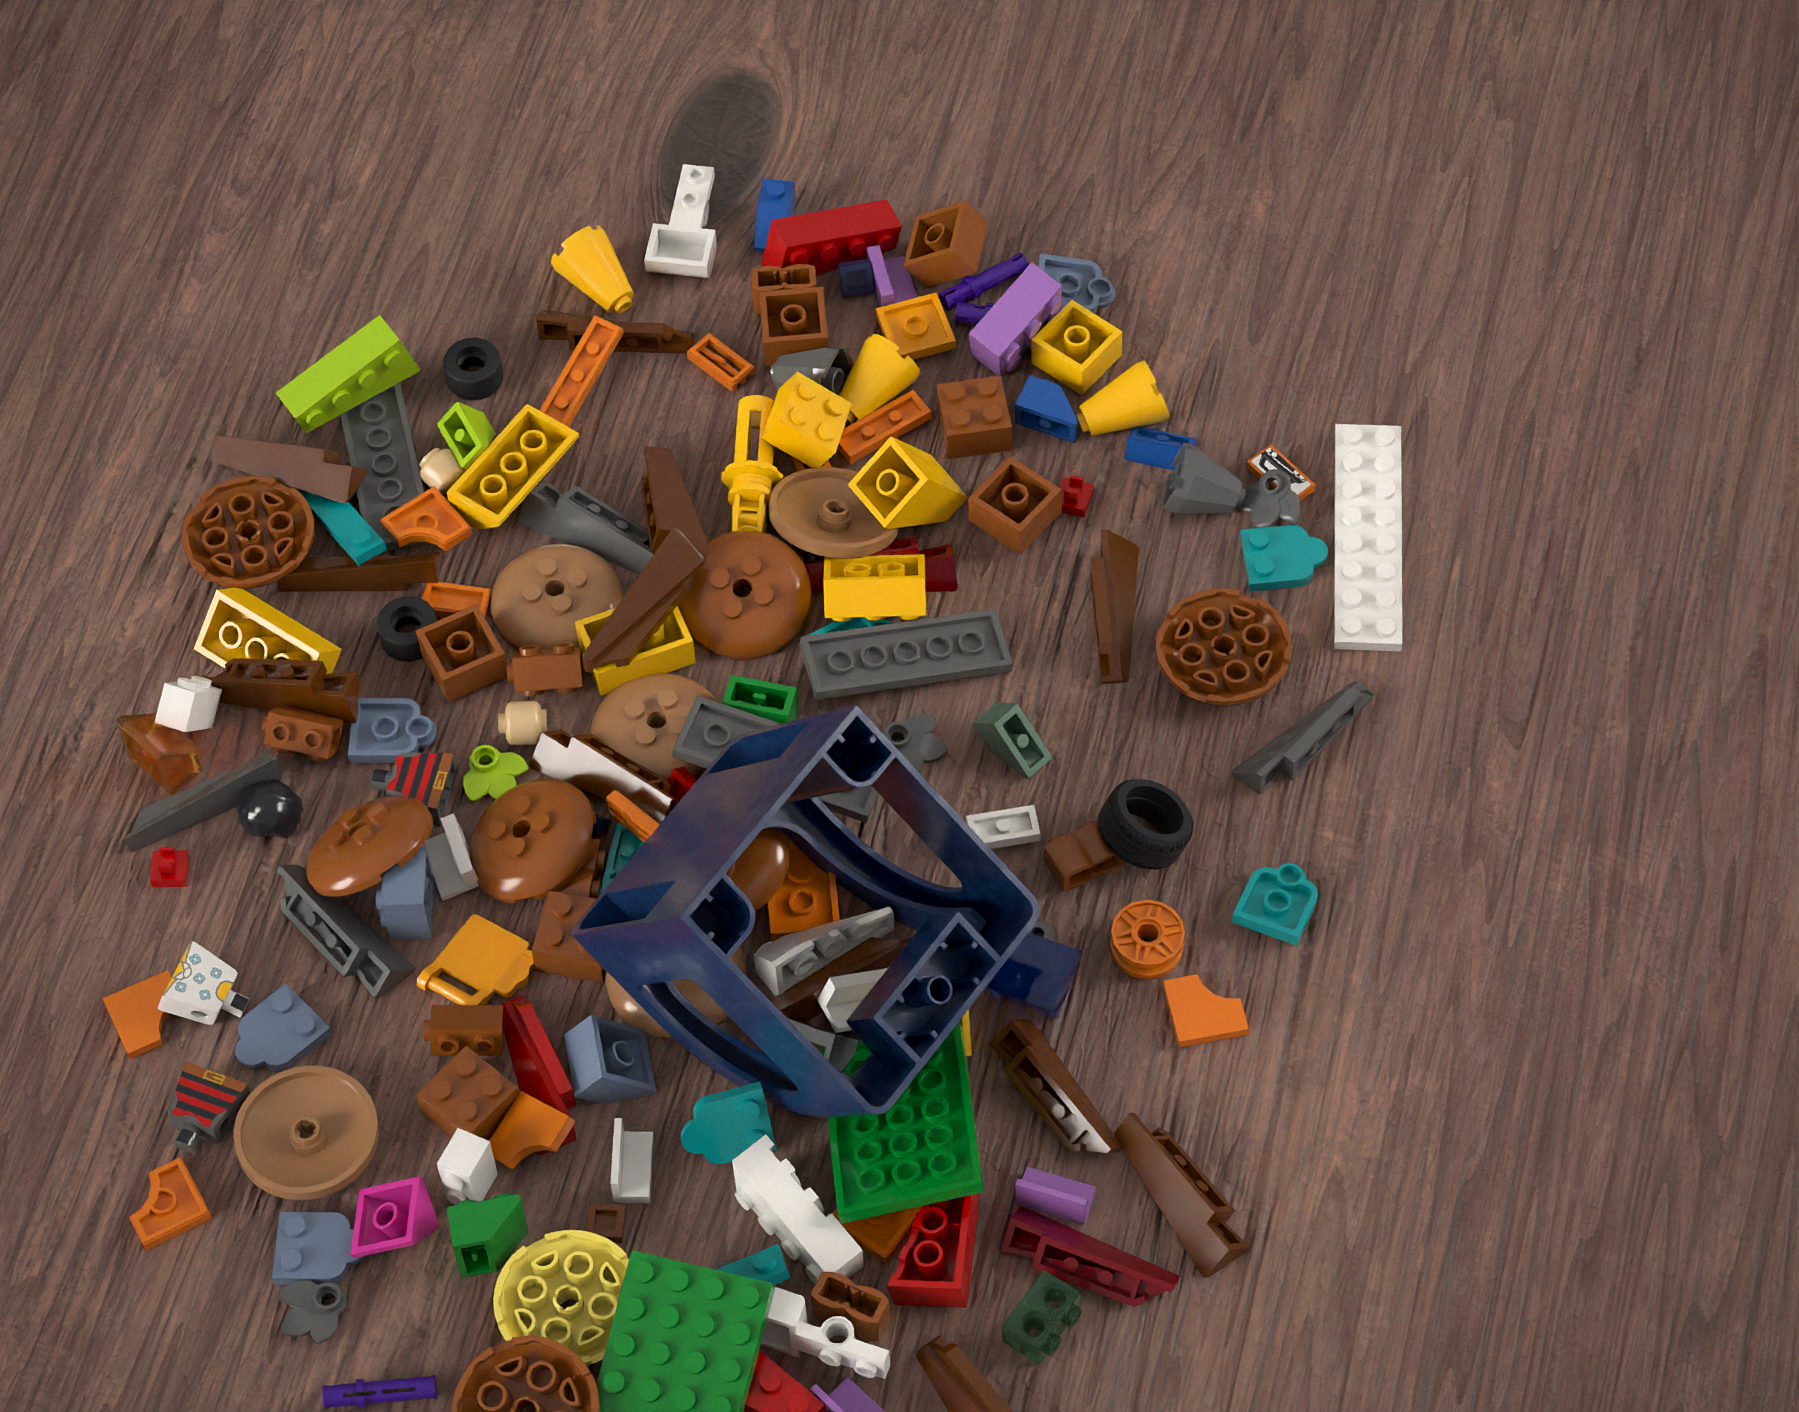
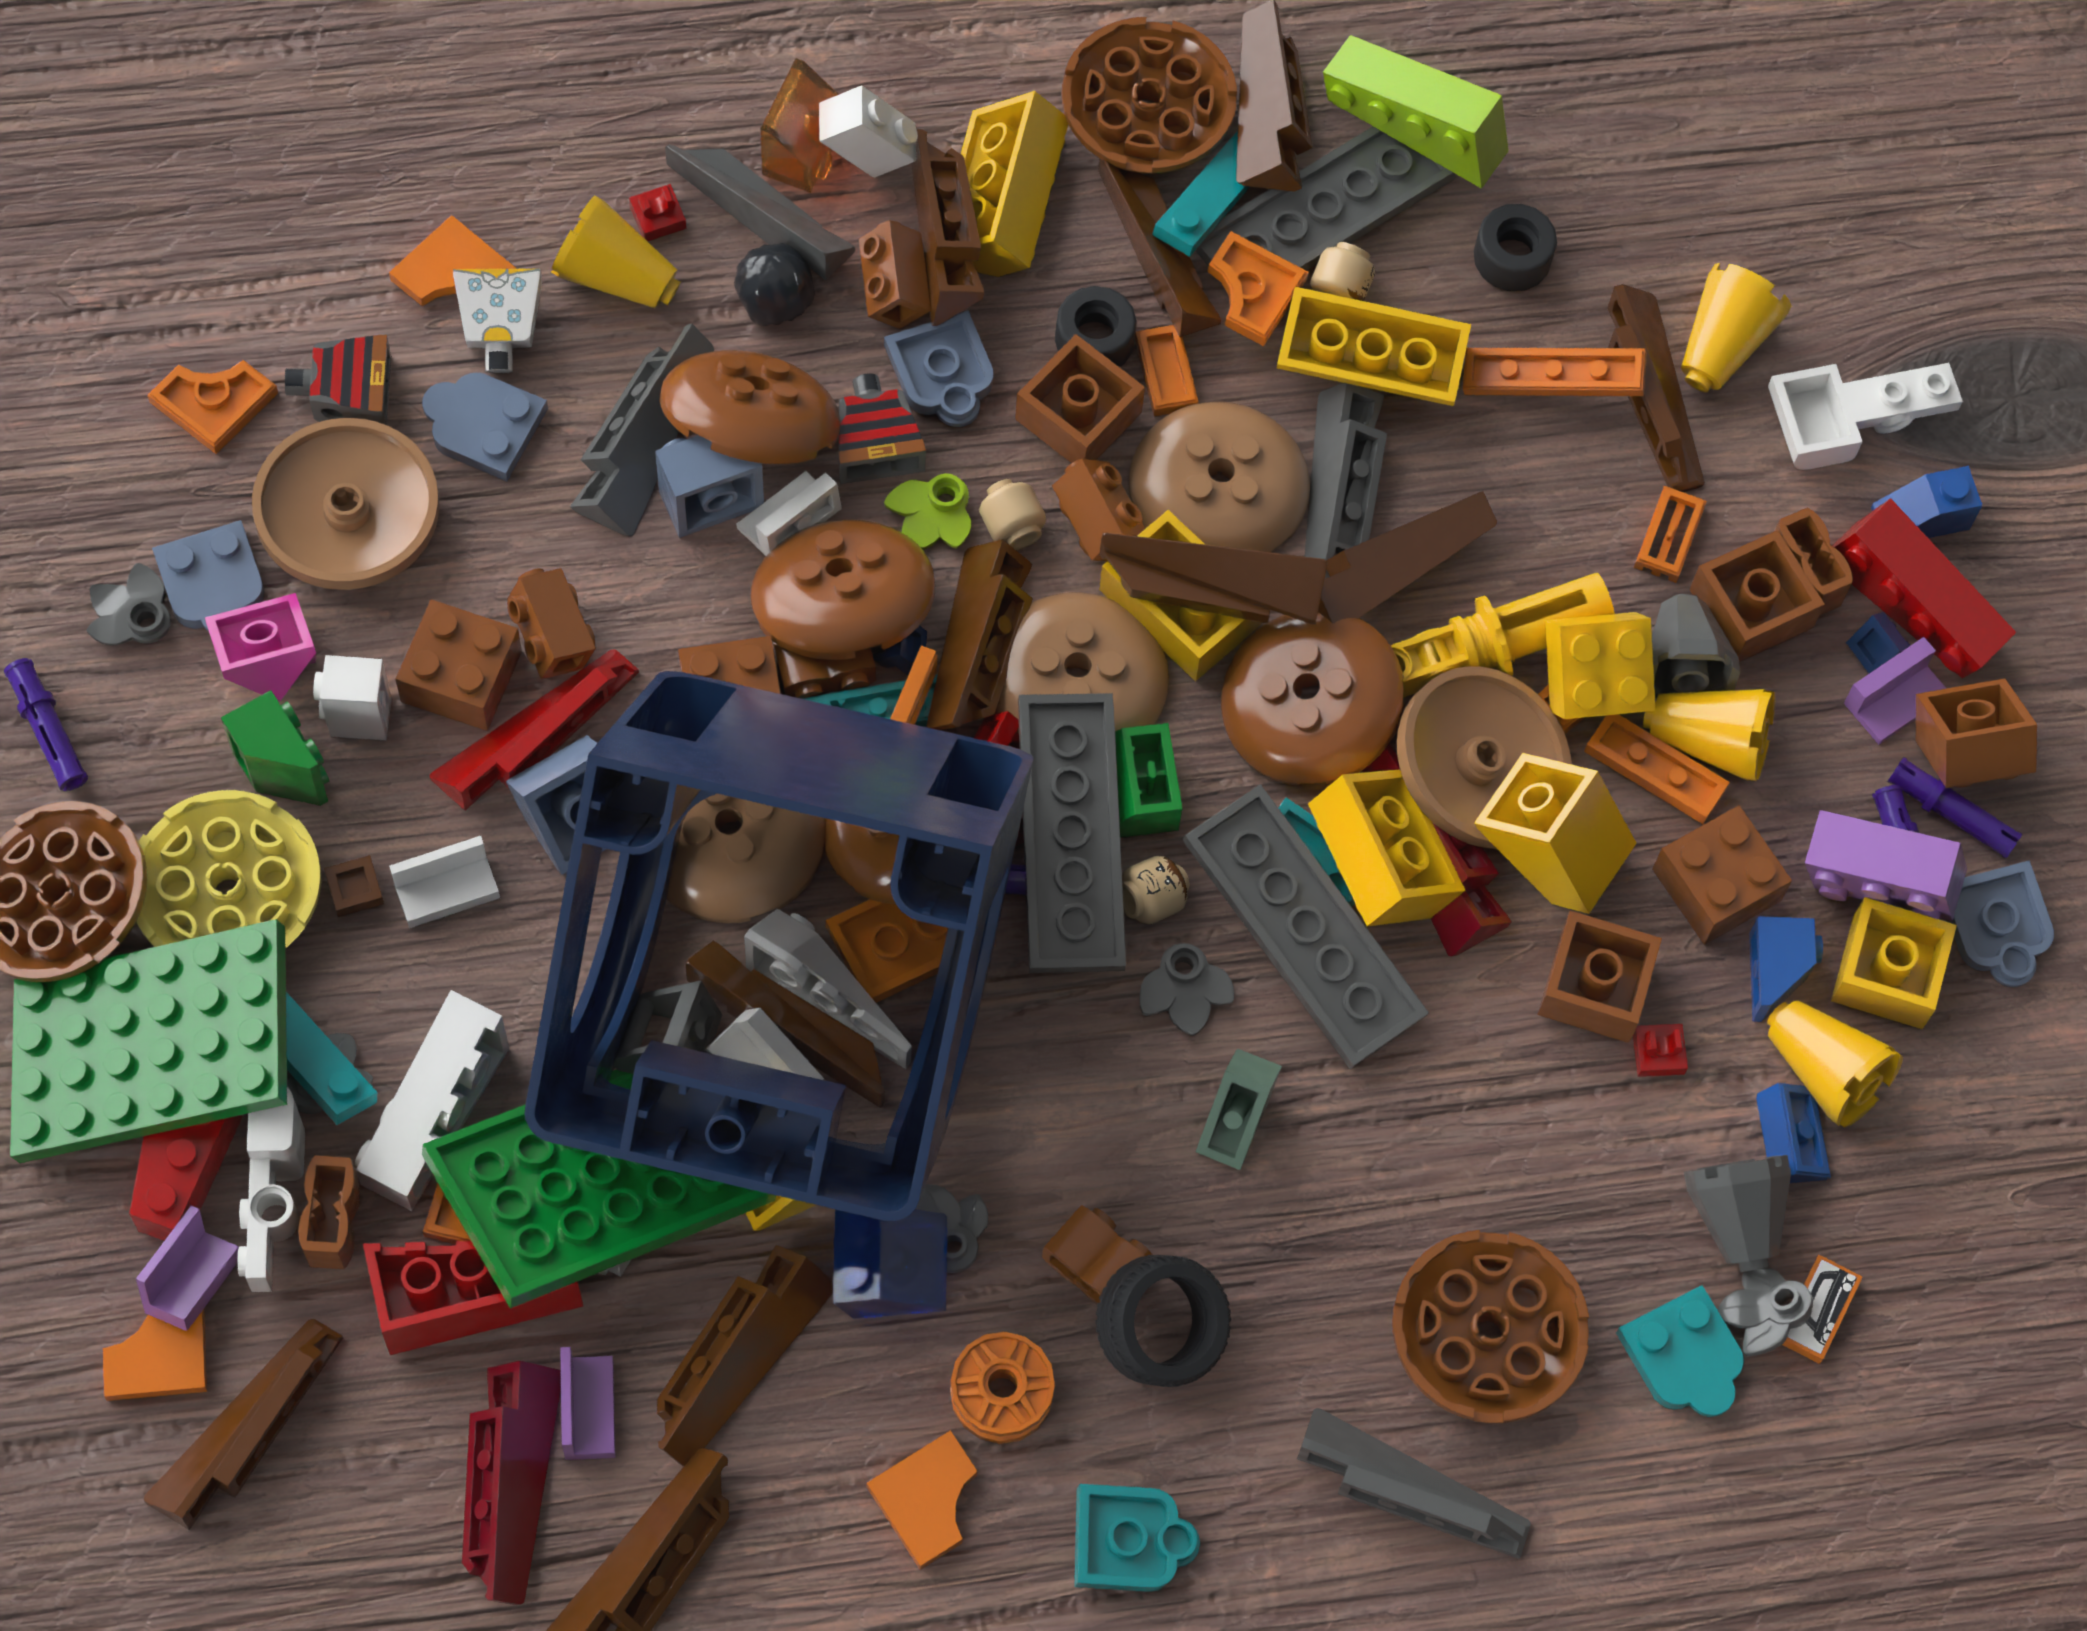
camera: 60 degrees right, 10 degrees up
(197, 900) = (614, 258): none -> yellow cone
(466, 433) = (1404, 277): lime slope -> none
(482, 958) = (667, 605): light orange piece -> none
(528, 1129) = (438, 746): orange tile -> none
(727, 1123) = (517, 970): teal plate -> none
(917, 326) = (1834, 749): light orange plate -> none
(1006, 826) = (1094, 1138): white plate -> none
(1035, 1314) = (406, 1440): clear green brick -> none
(1113, 597) = (1509, 1161): reddish brown wedge -> none
(1368, 538) = (1773, 1461): white plate -> none

